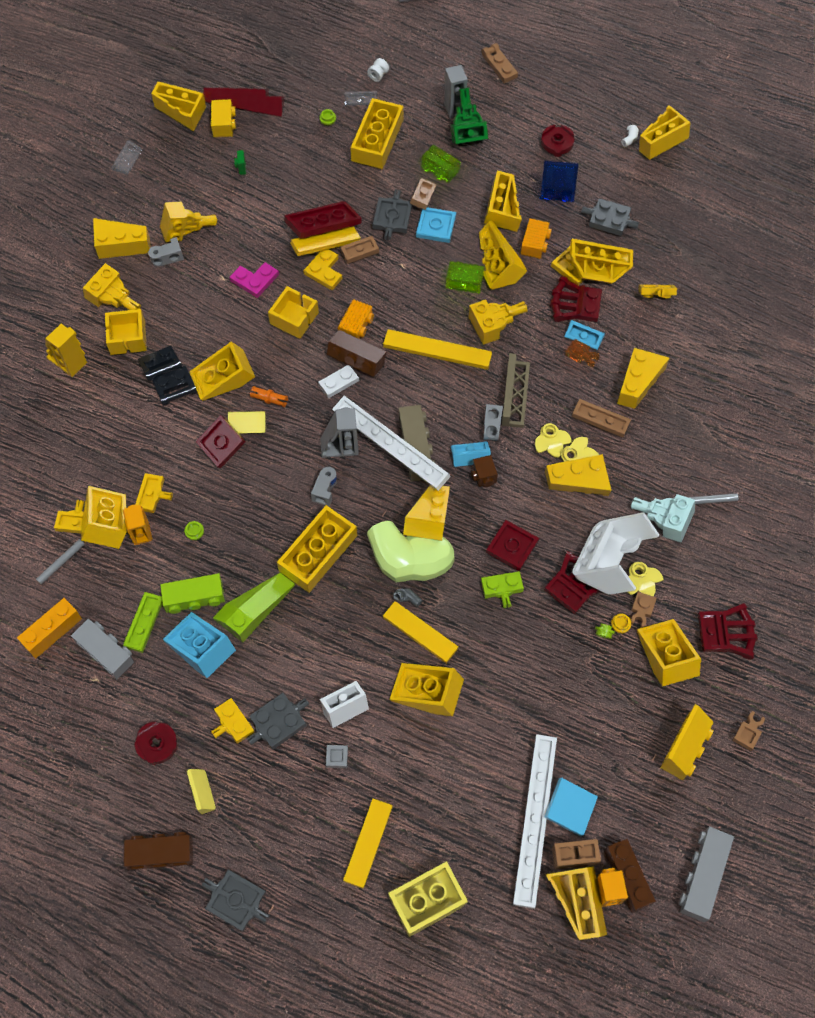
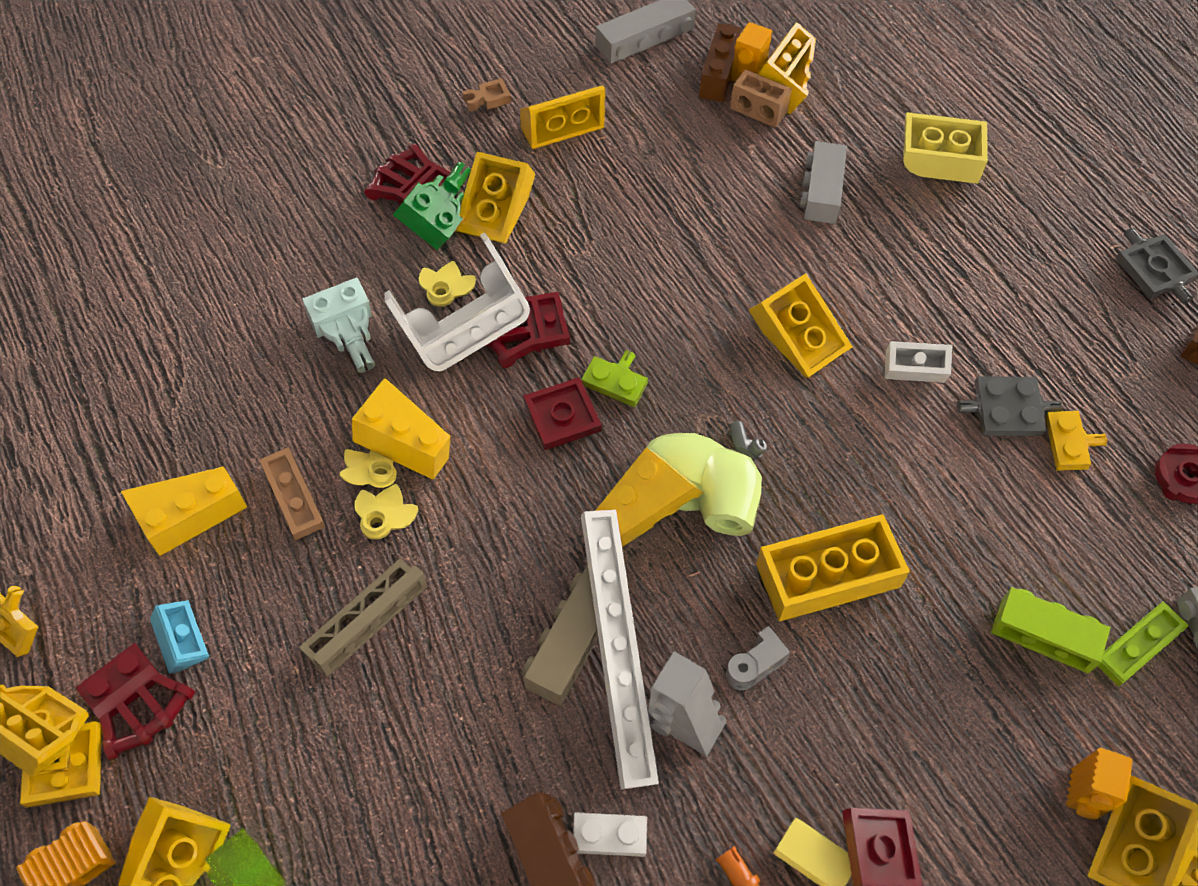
camera: 145 degrees left, 5 degrees down
(152, 492) = (1044, 841): yellow plate -> none
(194, 530) = (999, 730): lime plate -> none
(200, 644) = (1075, 555): medium azure slope -> none
(201, 790) = (1151, 389): light yellow slope -> none
(248, 610) = (979, 557): lime wedge -> none
(336, 756) = (957, 326): light grey plate -> none
(368, 843) = (970, 236): yellow tile -> none
(420, 632) = (760, 395): yellow tile -> none
(437, 349) = (413, 778): yellow tile -> none
(465, 453) = (506, 573): medium azure slope -> none
(484, 471) = (514, 526): reddish brown brick -> none
(486, 814) = (823, 182): none -> light grey brick
(492, 318) = (283, 755): yellow brick -> none
(492, 422) = (439, 588): light grey leg -> none
(534, 822) = (771, 154): white plate -> none
(571, 807) = (729, 139): medium azure tile -> none
(579, 351) = (216, 612): clear orange plate -> none
(604, 631) = (543, 258): lime plate -> none
(621, 623) = (515, 257): yellow plate -> none
(642, 606) = (474, 259): medium nougat plate -> none
(690, 610) = (432, 208): none -> green brick
(715, 498) = (275, 315): light grey bar -> none

